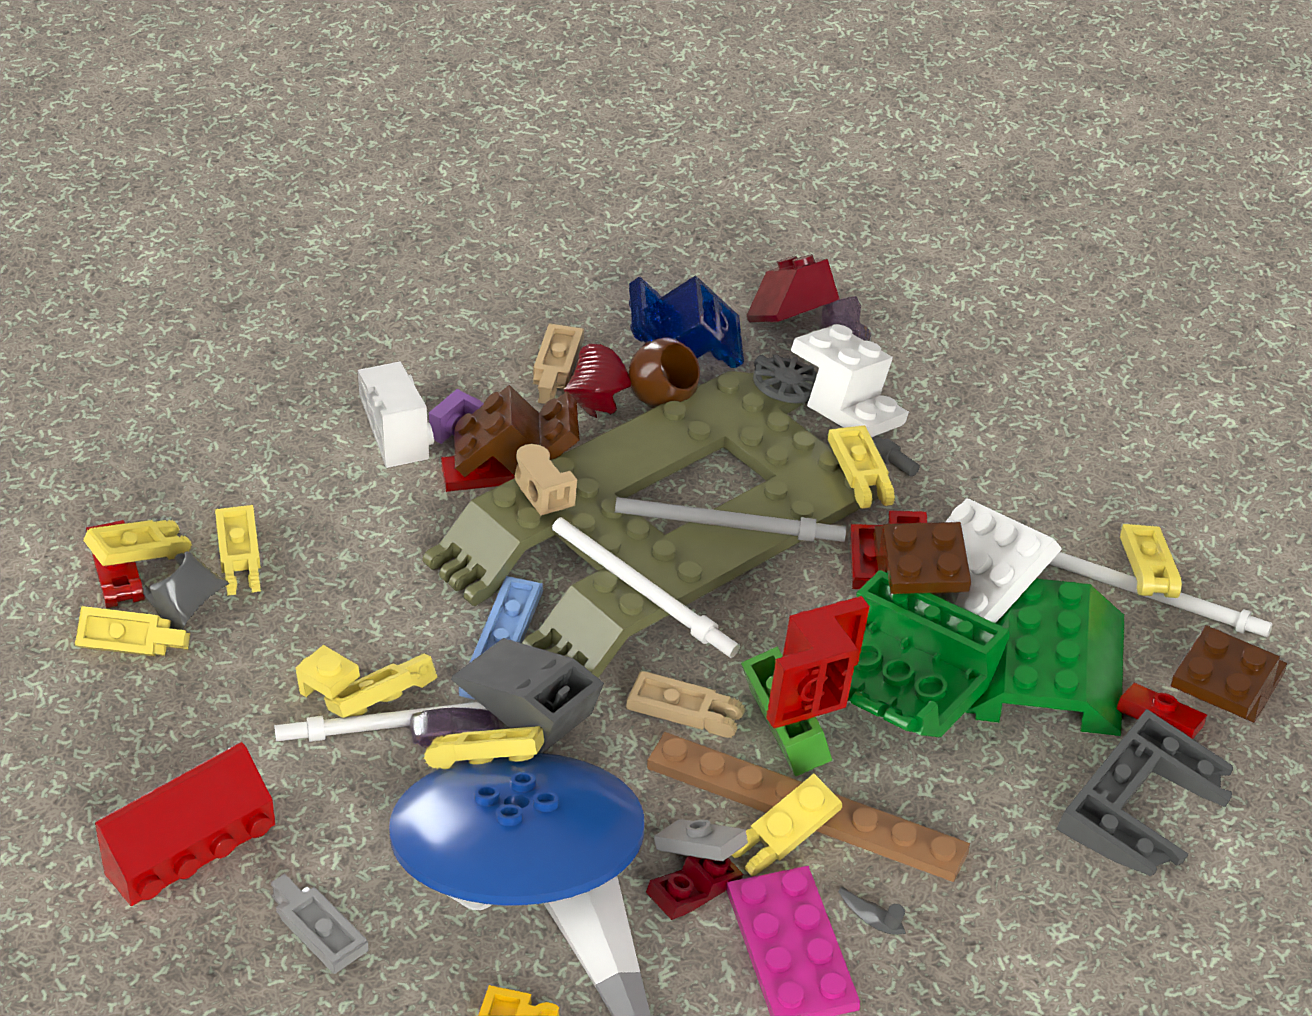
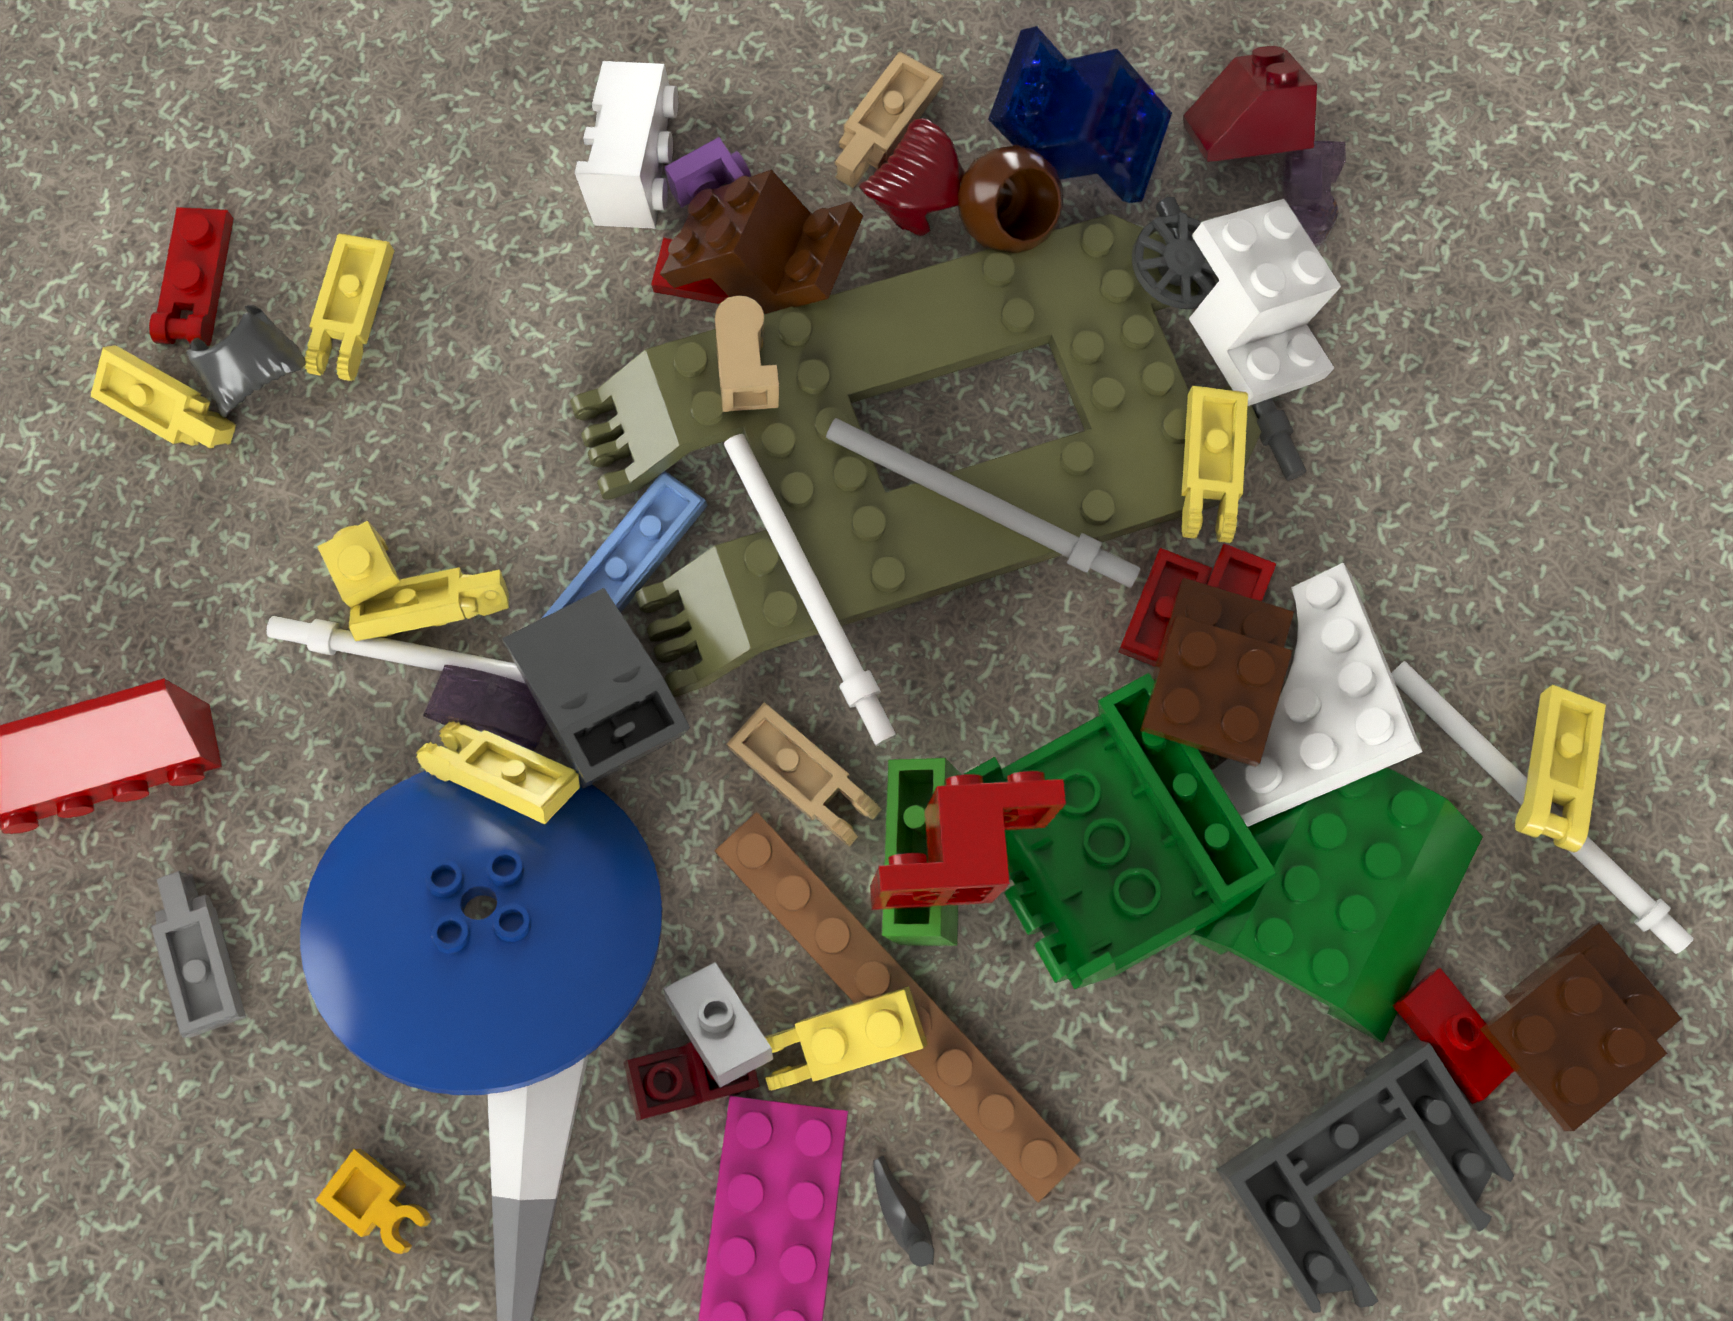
camera: 30 degrees right, 30 degrees up
(136, 541) = (209, 263): light yellow hinge -> none

